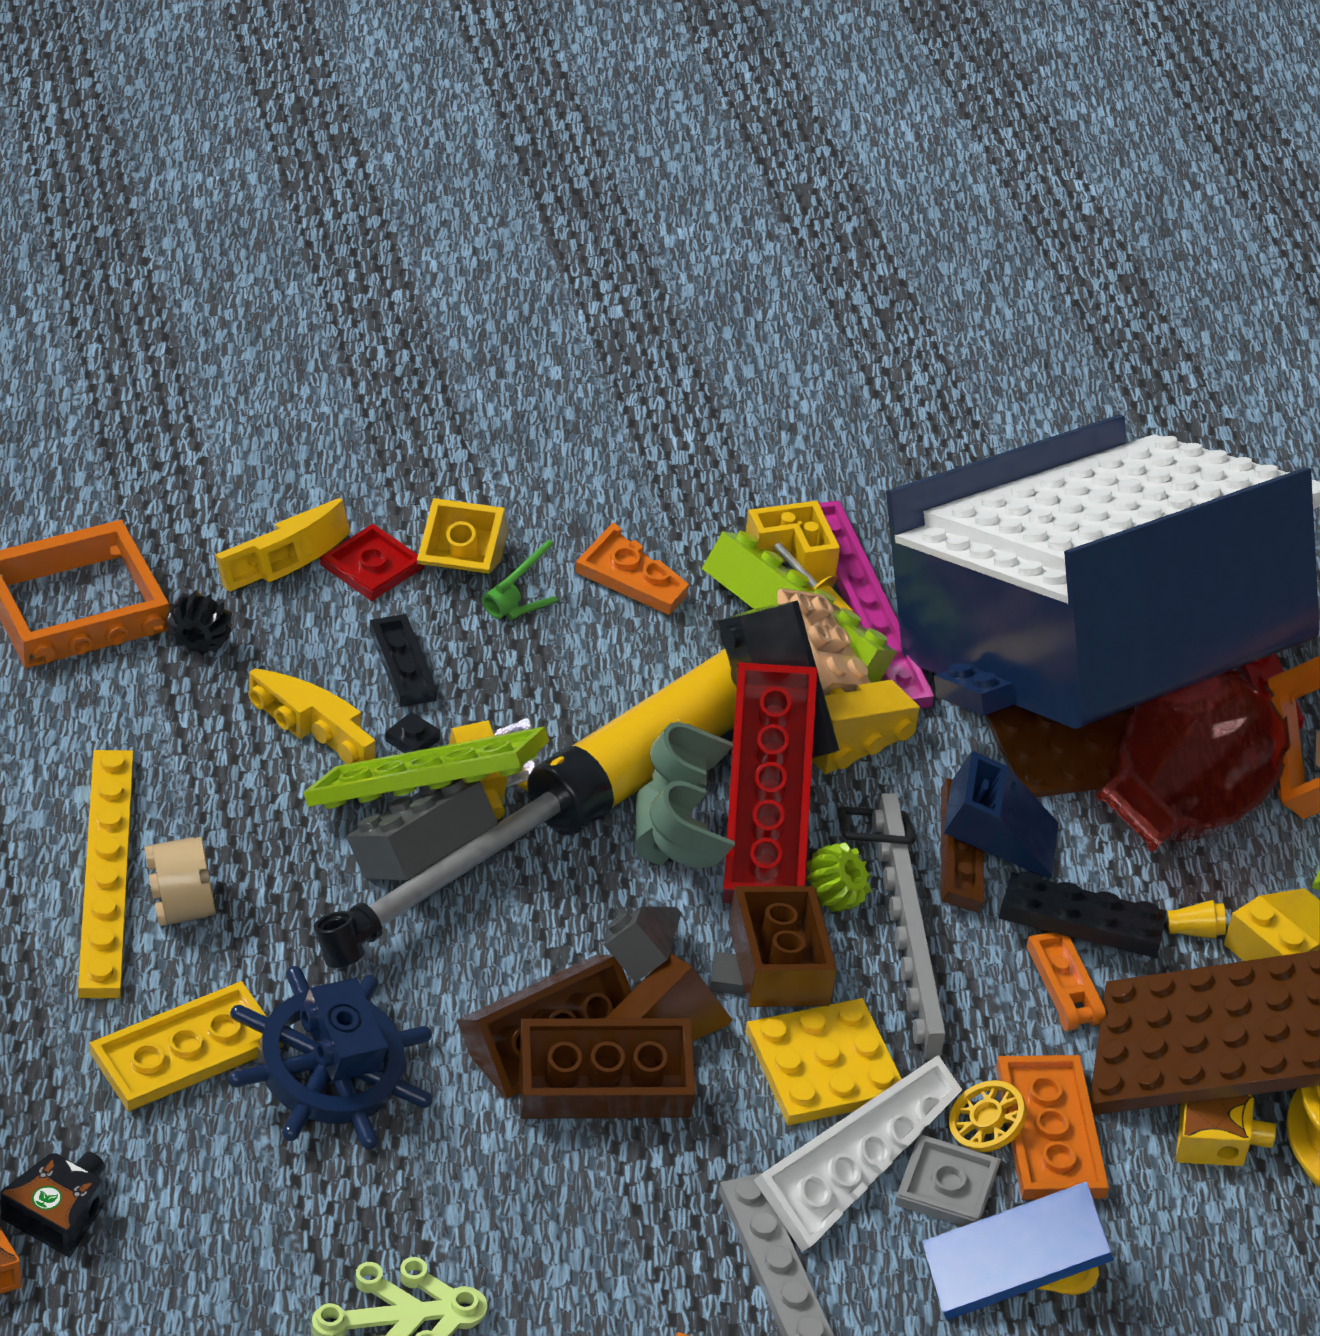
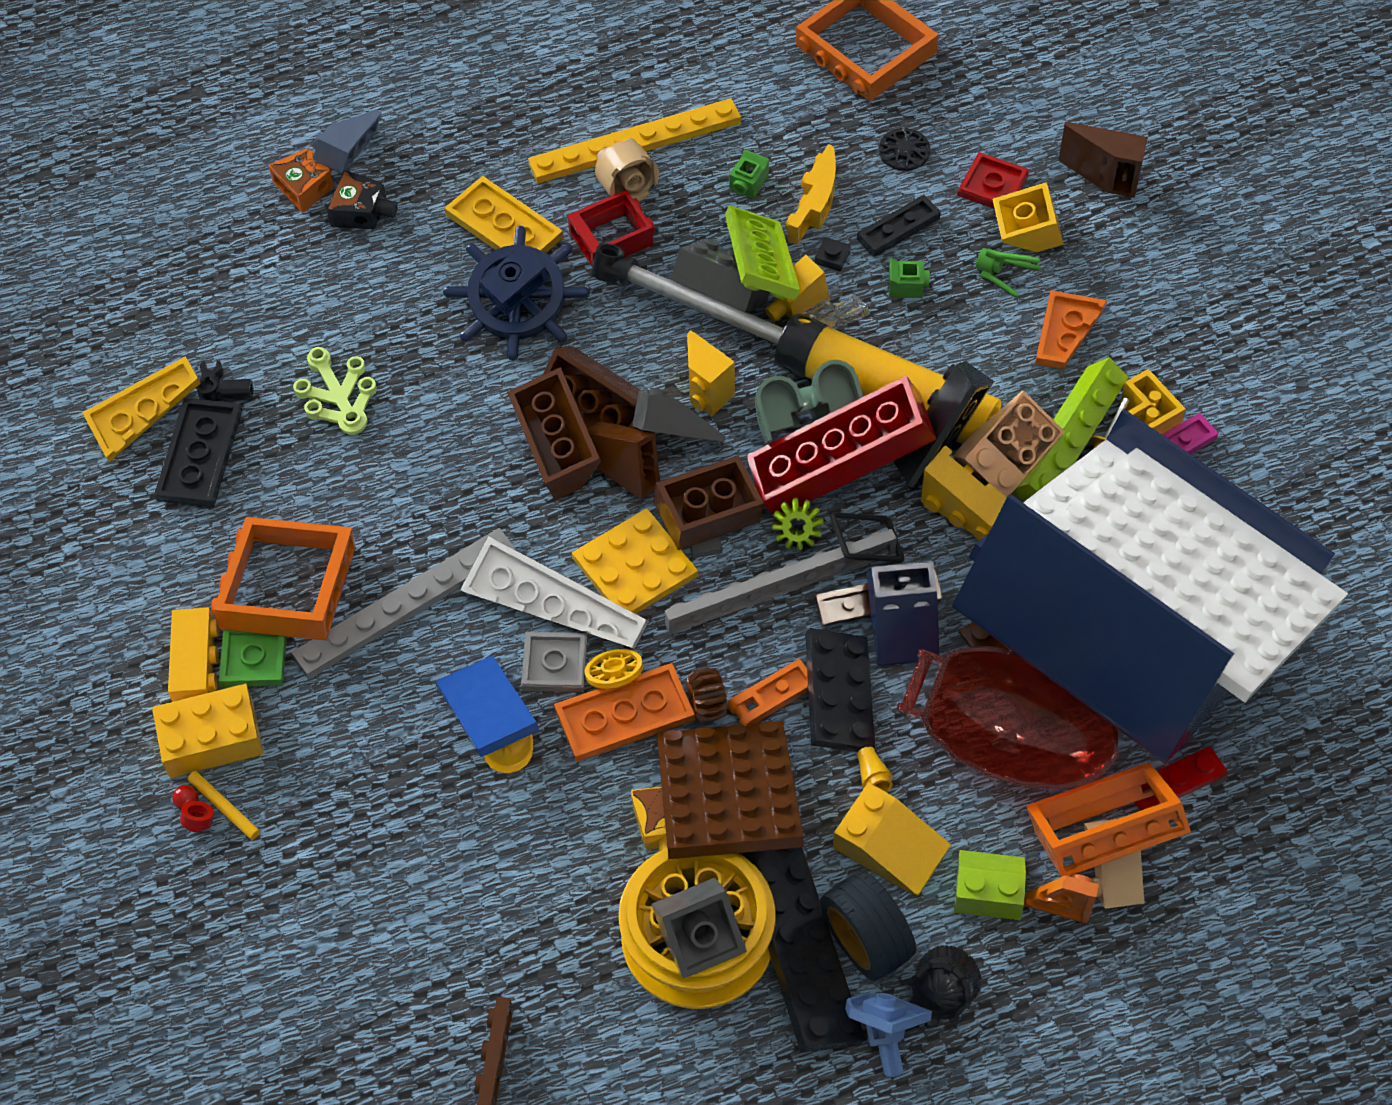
camera: 80 degrees right, 15 degrees up
(199, 622) = (865, 106): black gear -> none
(242, 769) = (745, 183): none -> bright green window
(265, 961) = (608, 209): none -> red window
(272, 621) = (904, 149): none -> black wheel
(287, 548) = (971, 130): yellow slope -> none
(409, 446) = (1104, 157): none -> reddish brown slope
(497, 669) = (907, 279): none -> bright green window
(573, 893) = (709, 375): none -> yellow slope
(1060, 1029) = (707, 694): none -> reddish brown gear

